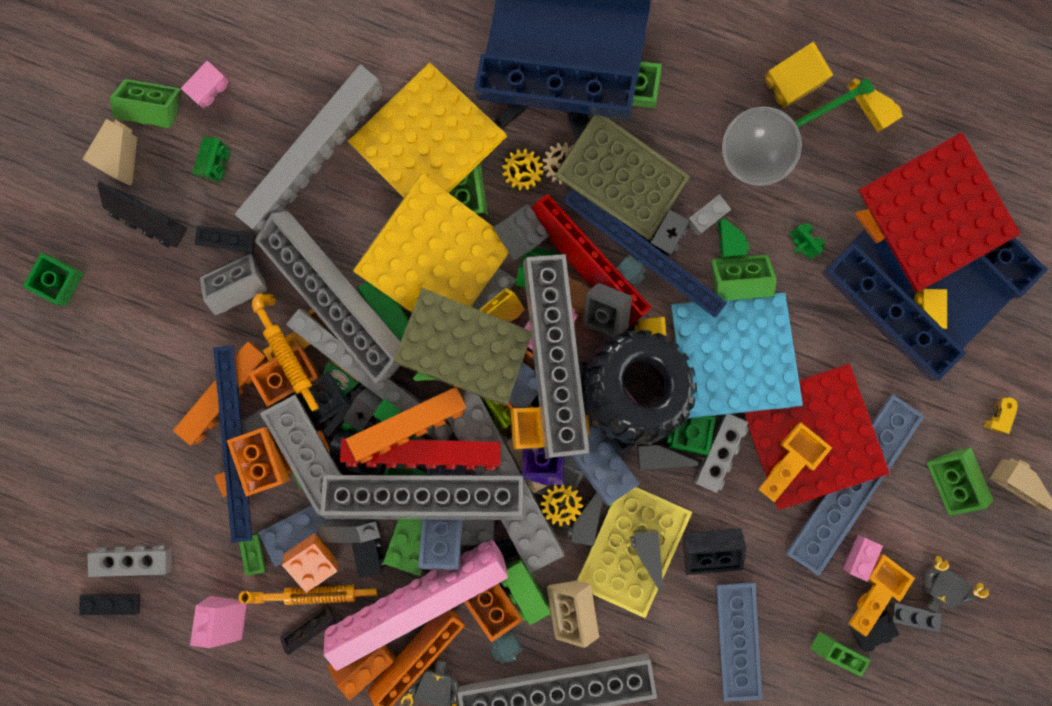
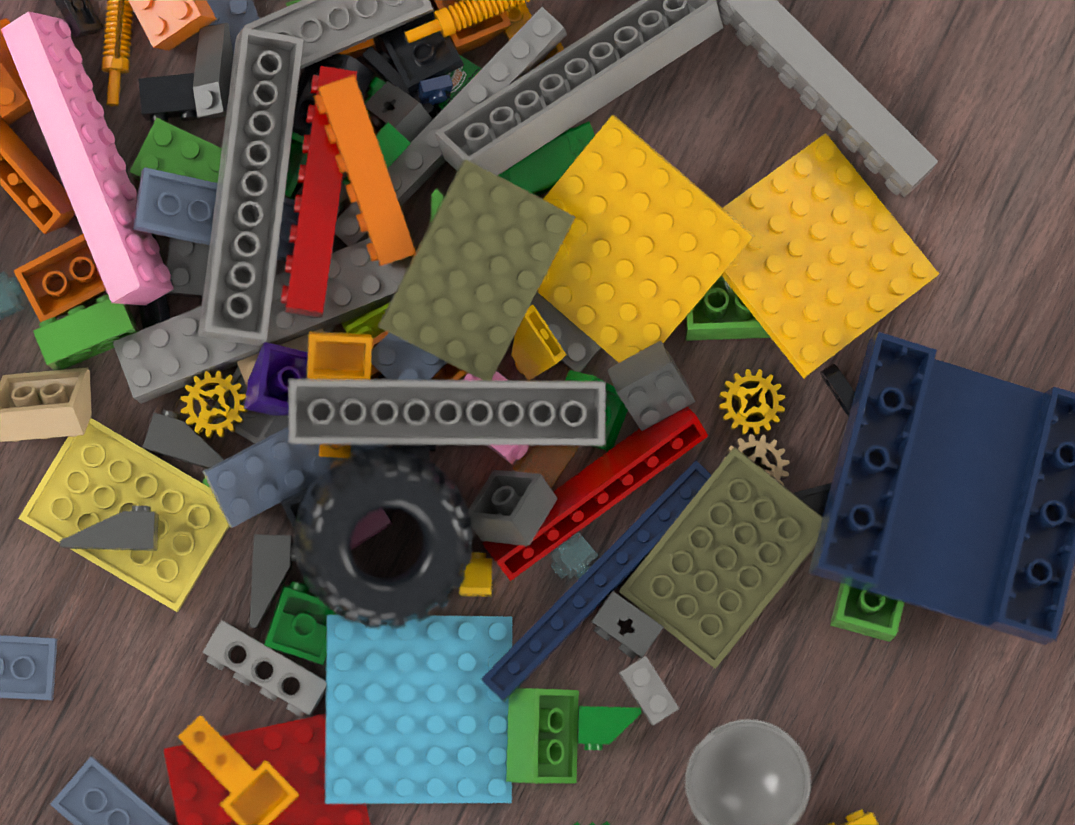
camera: 100 degrees right, 5 degrees down
(347, 387) = (435, 90): none -> dark blue plate
(714, 551) = (109, 639): black slope -> none

